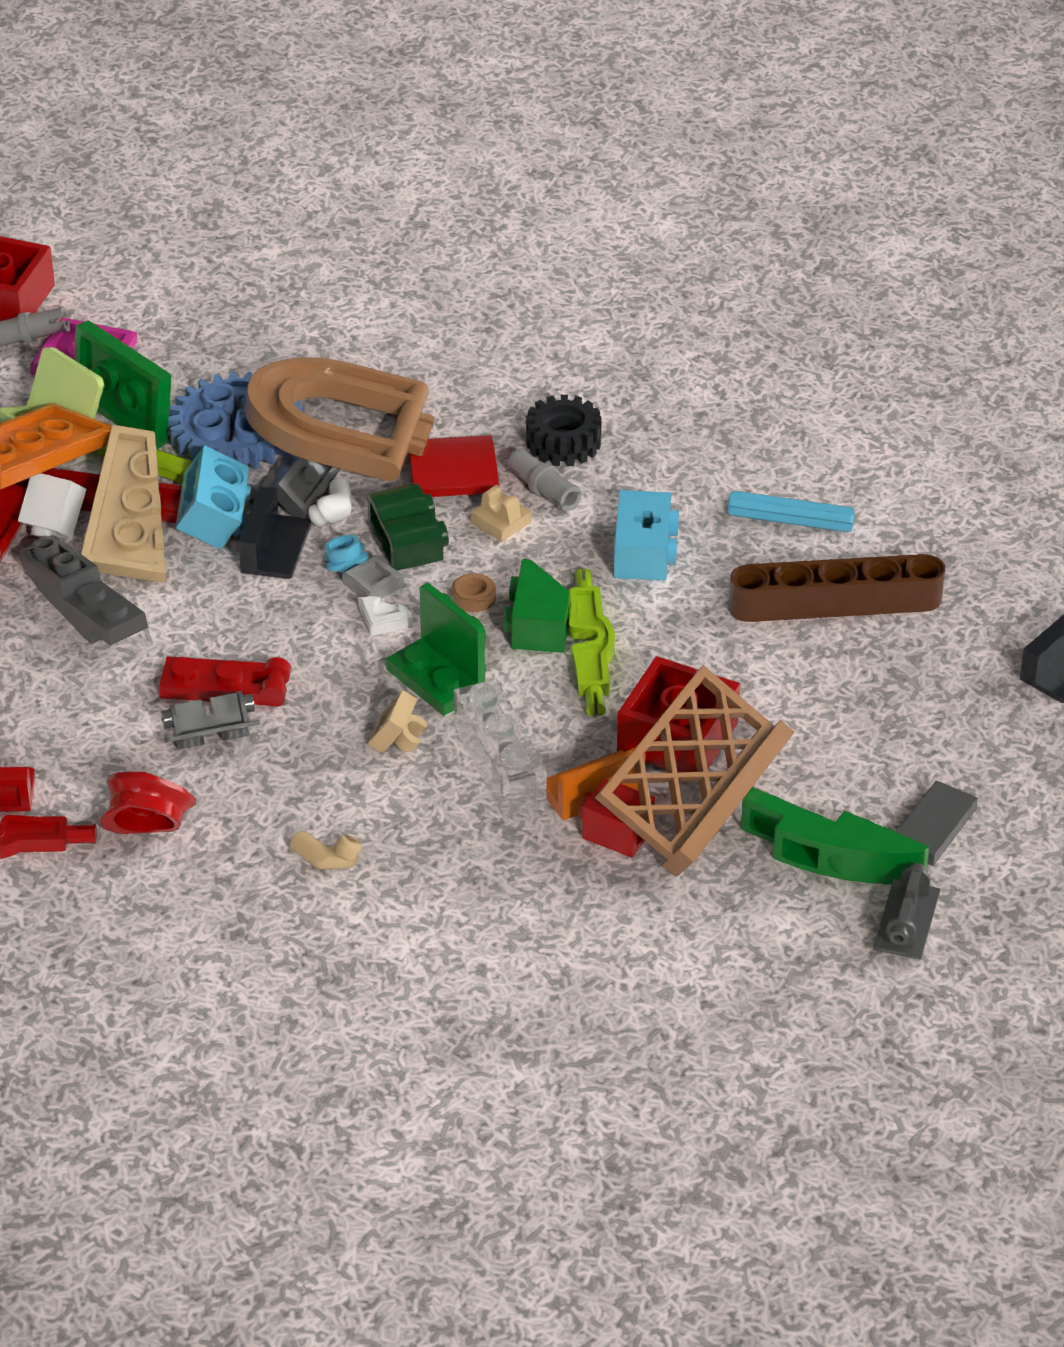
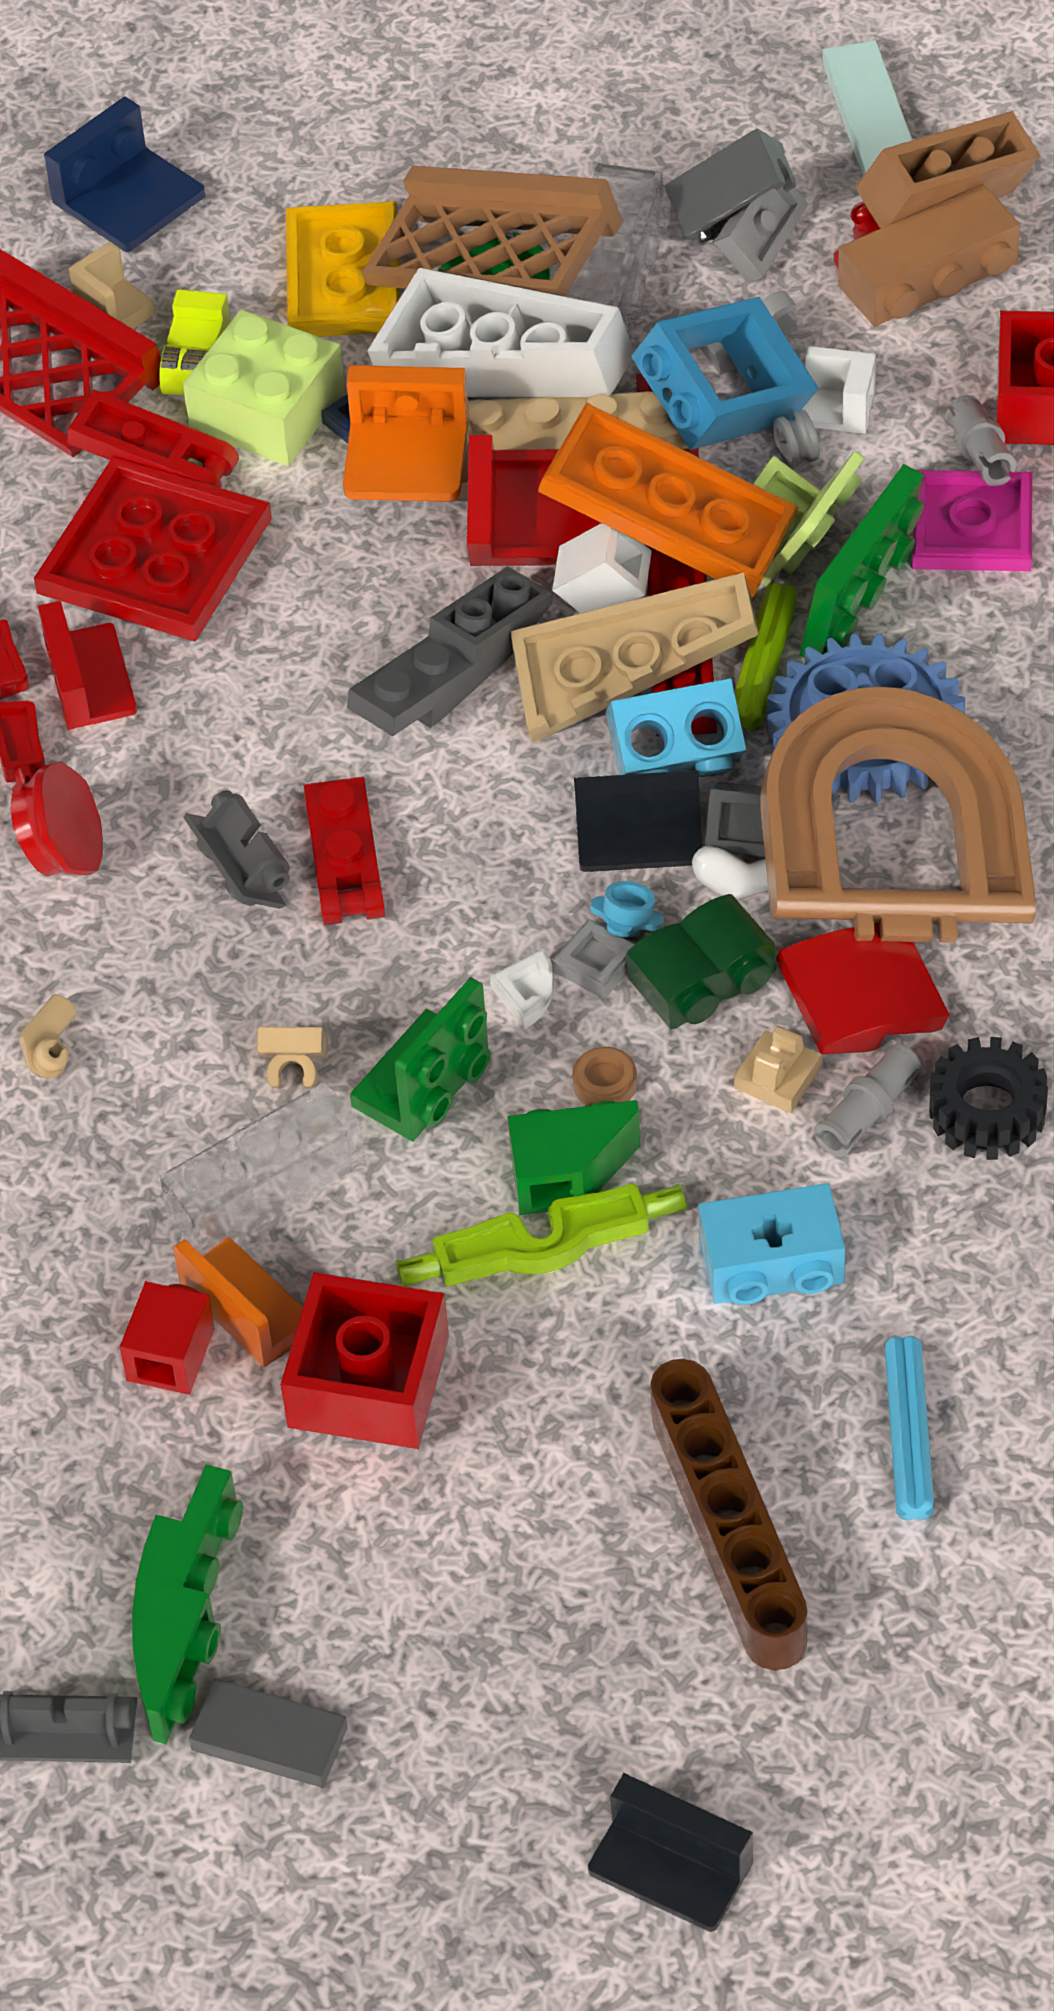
camera: 80 degrees right, 10 degrees up
(717, 802) = (213, 1443): medium nougat fence -> none

